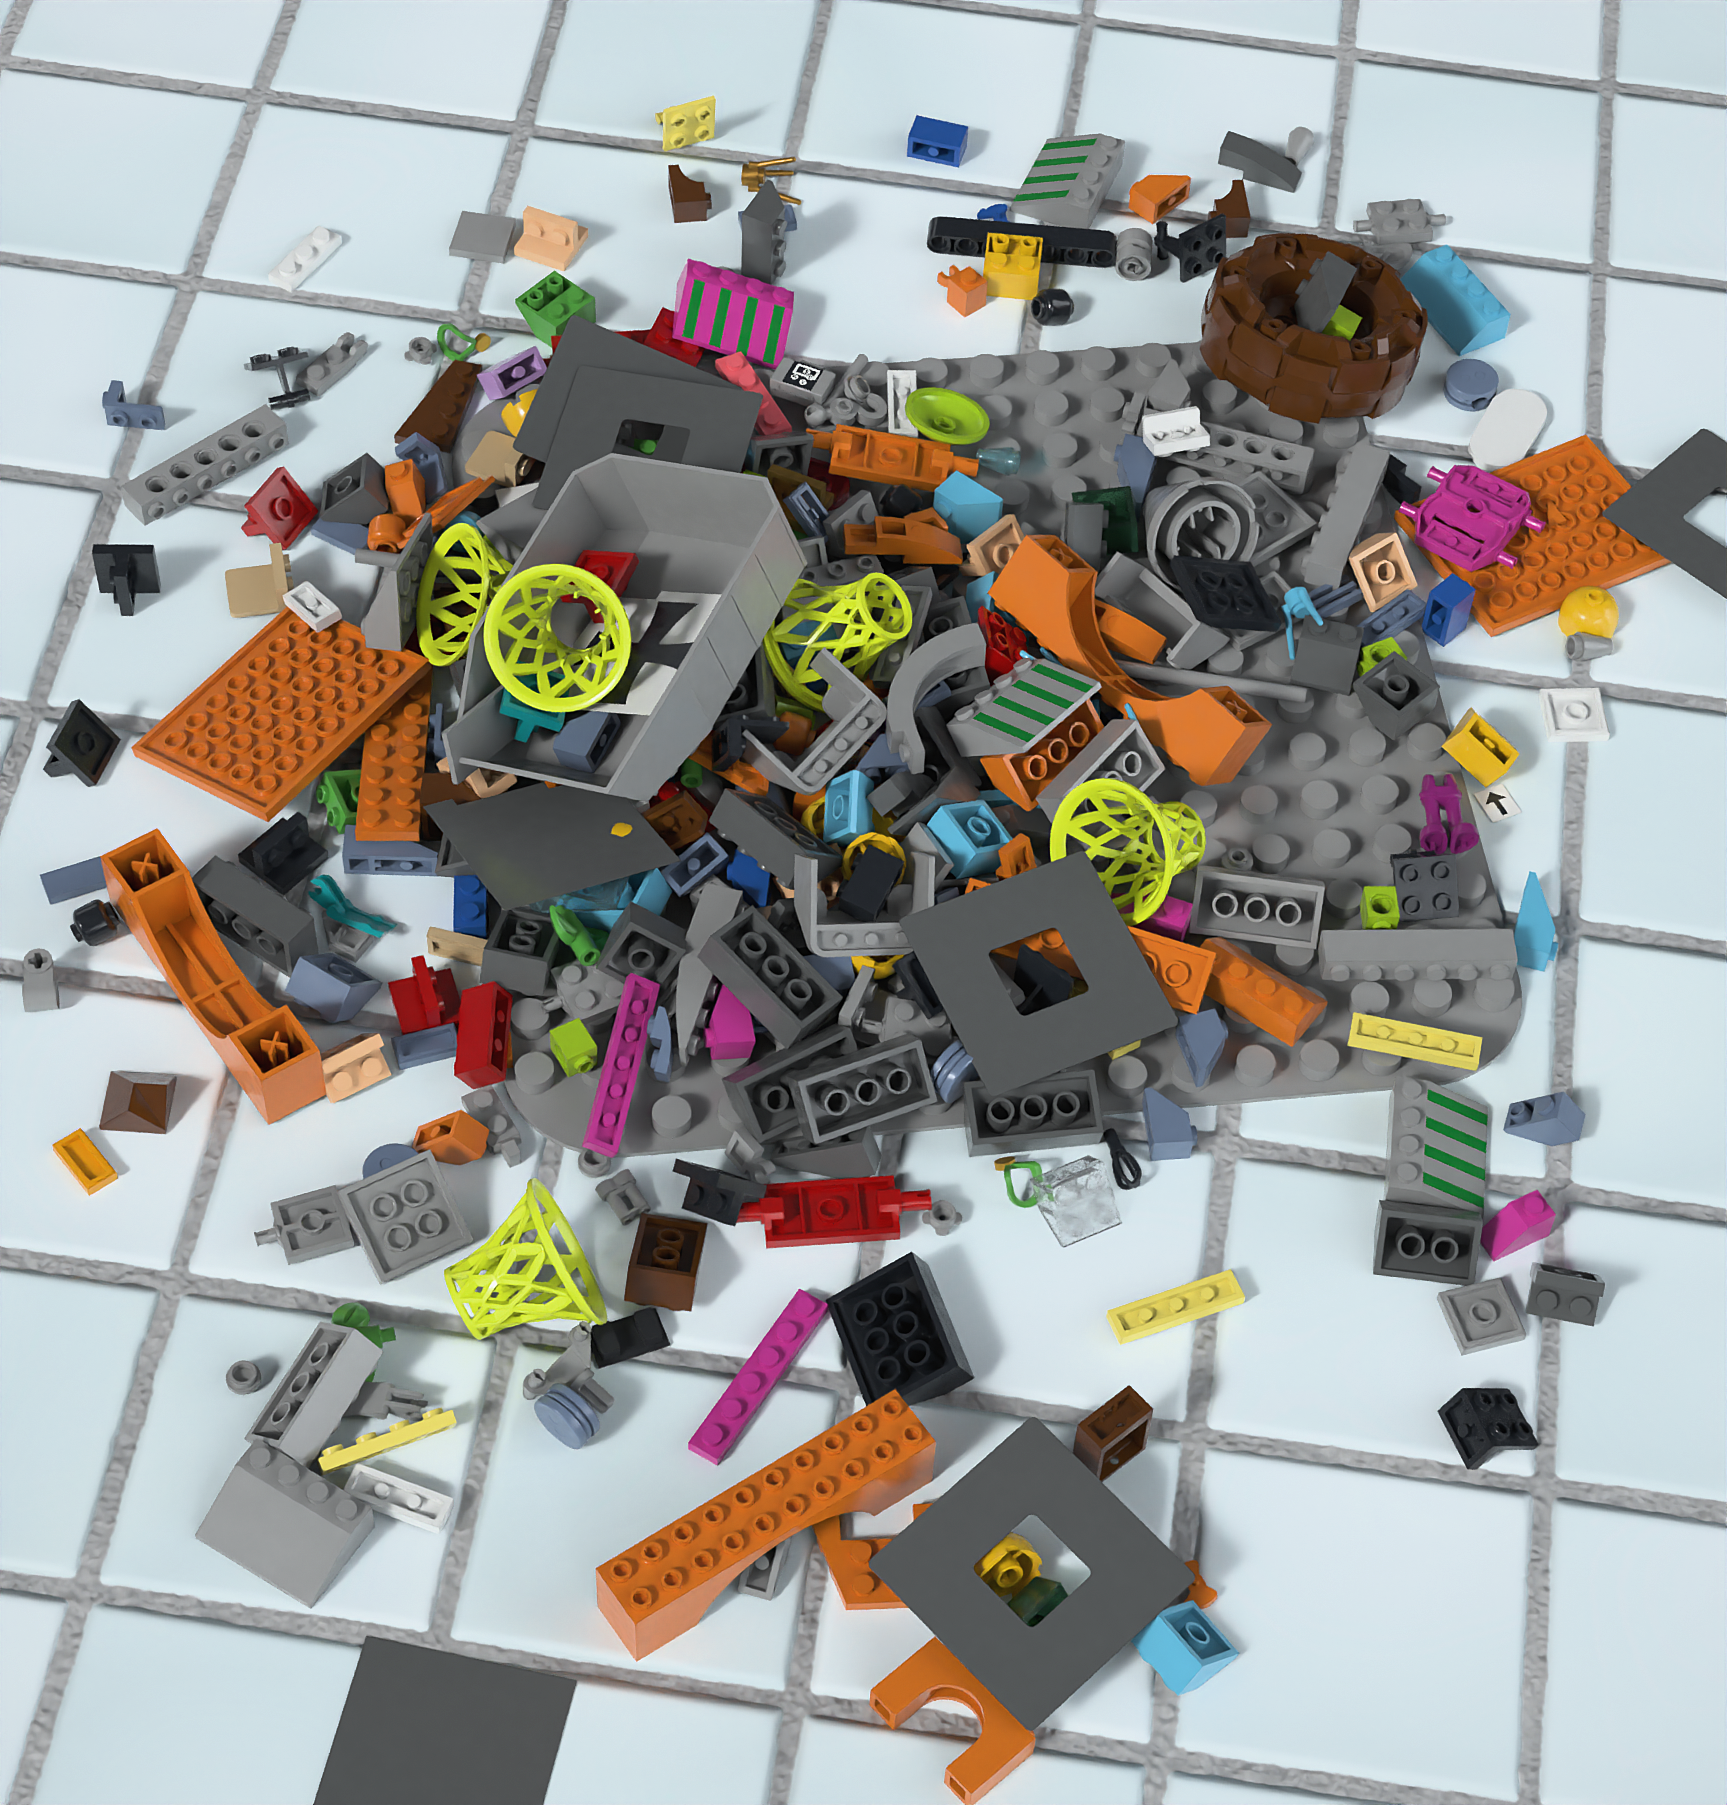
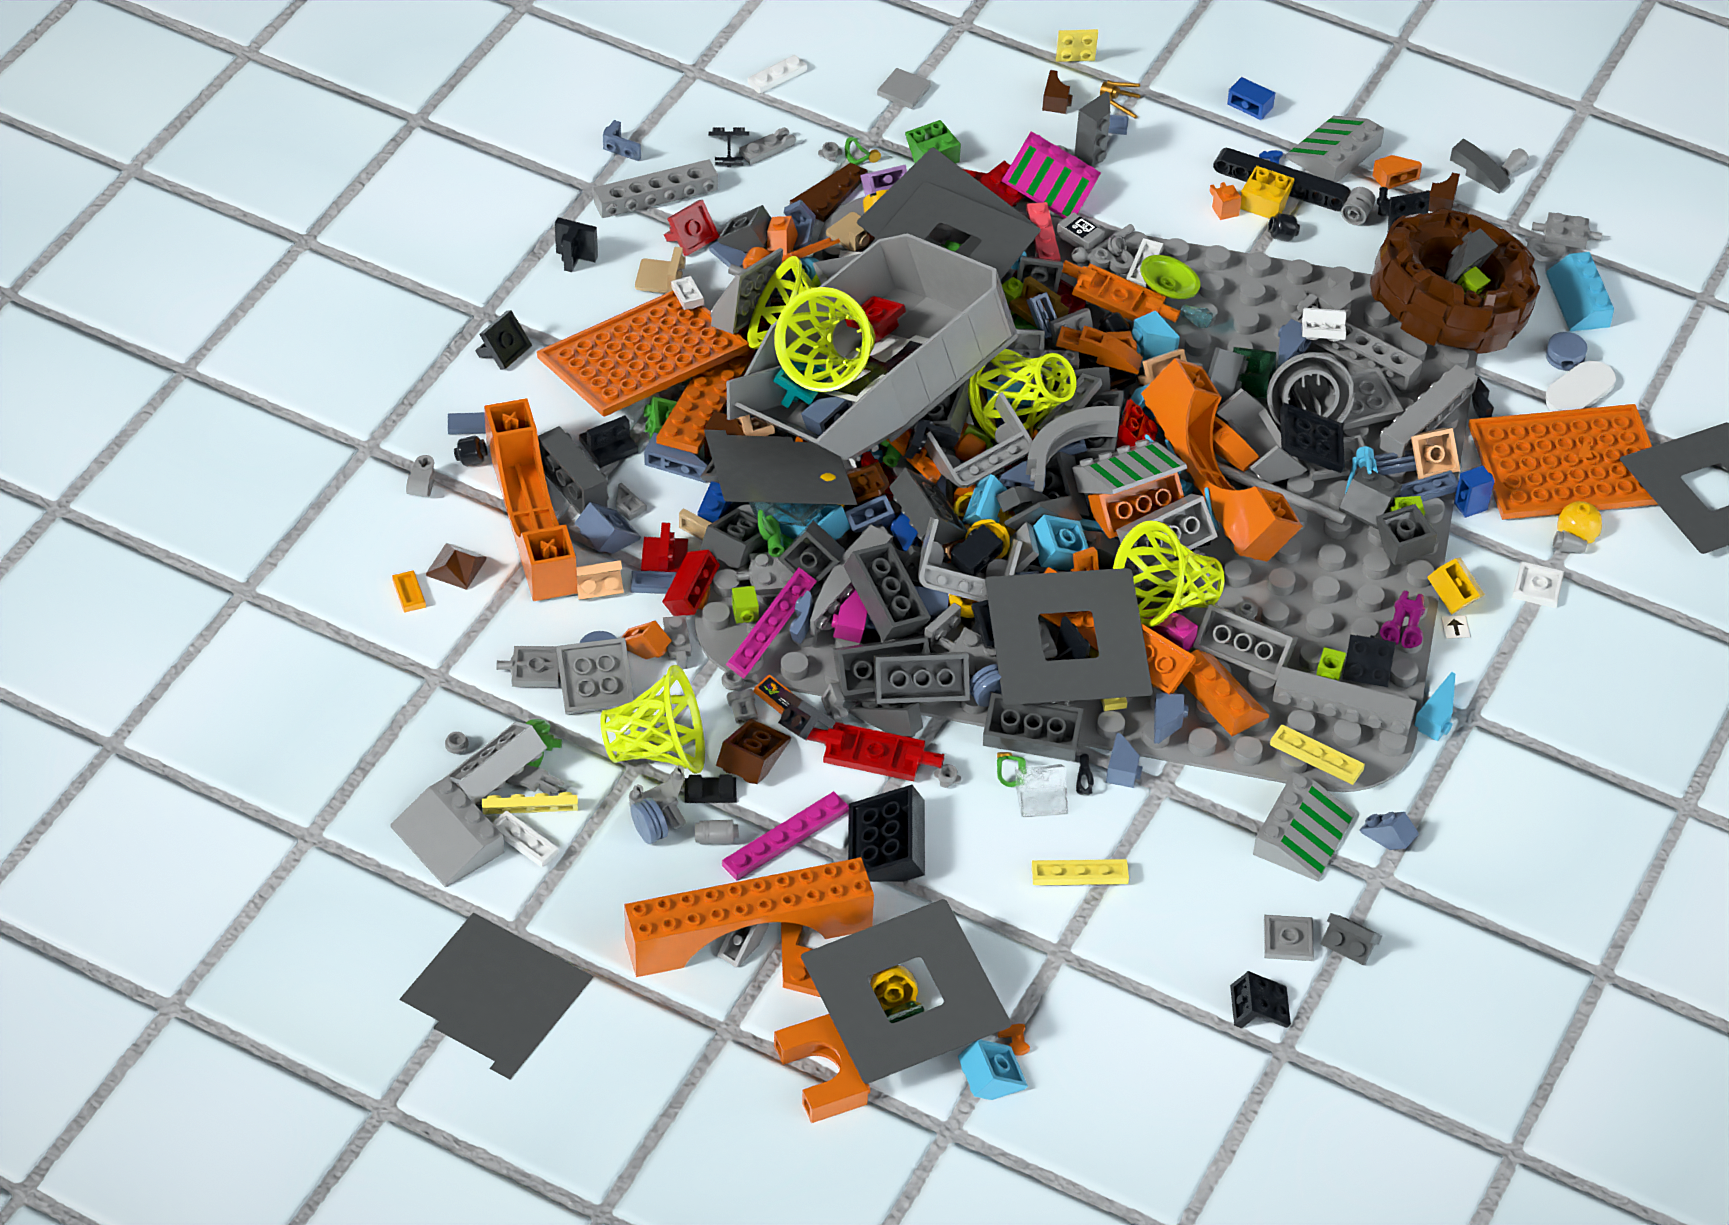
camera: 20 degrees right, 5 degrees down
(342, 909) = (633, 485): teal arm -> none
(549, 238) = (949, 99): light nougat bracket -> none
(657, 1166) = (768, 691): none -> tile
(663, 1401) = (716, 831): none -> light grey head
(1113, 1432) = (995, 917): reddish brown window -> none
(1426, 1243) = (1269, 881): dark grey slope -> none
(1501, 515) = (1542, 438): dark pink piece -> none
(1517, 1225) = (1338, 889): dark pink slope -> none

